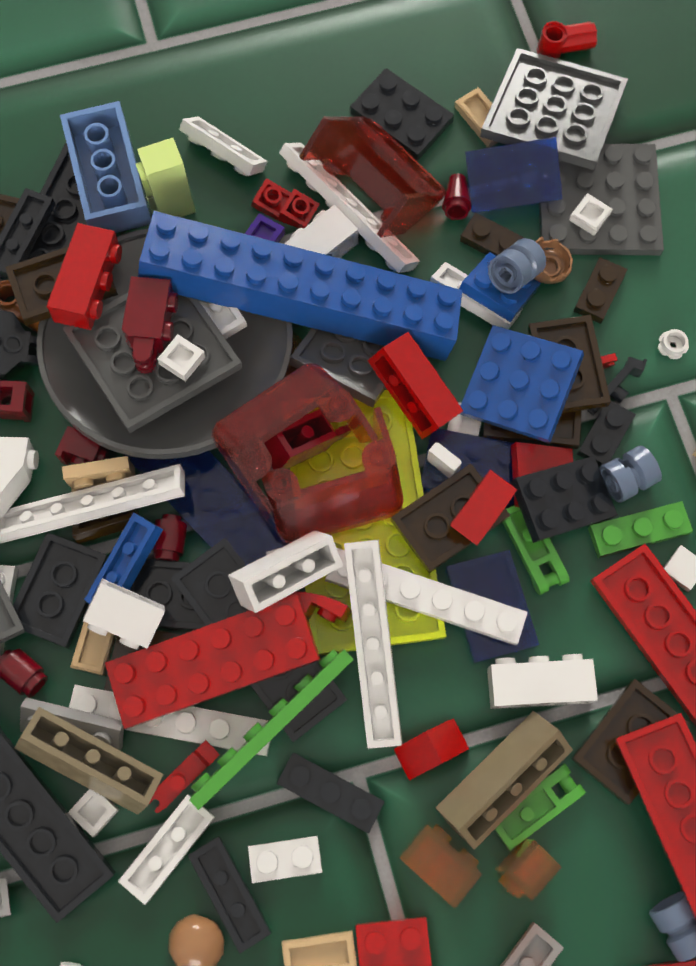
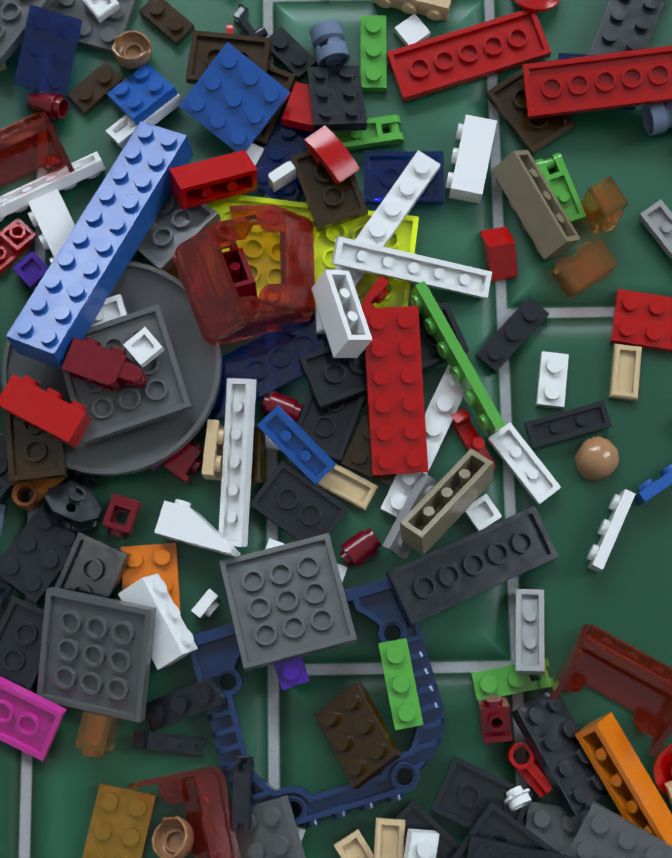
camera: 75 degrees left, 5 degrees up
(123, 614) = (339, 448): white brick -> none
(517, 265) = (135, 70): sand blue wheel -> none

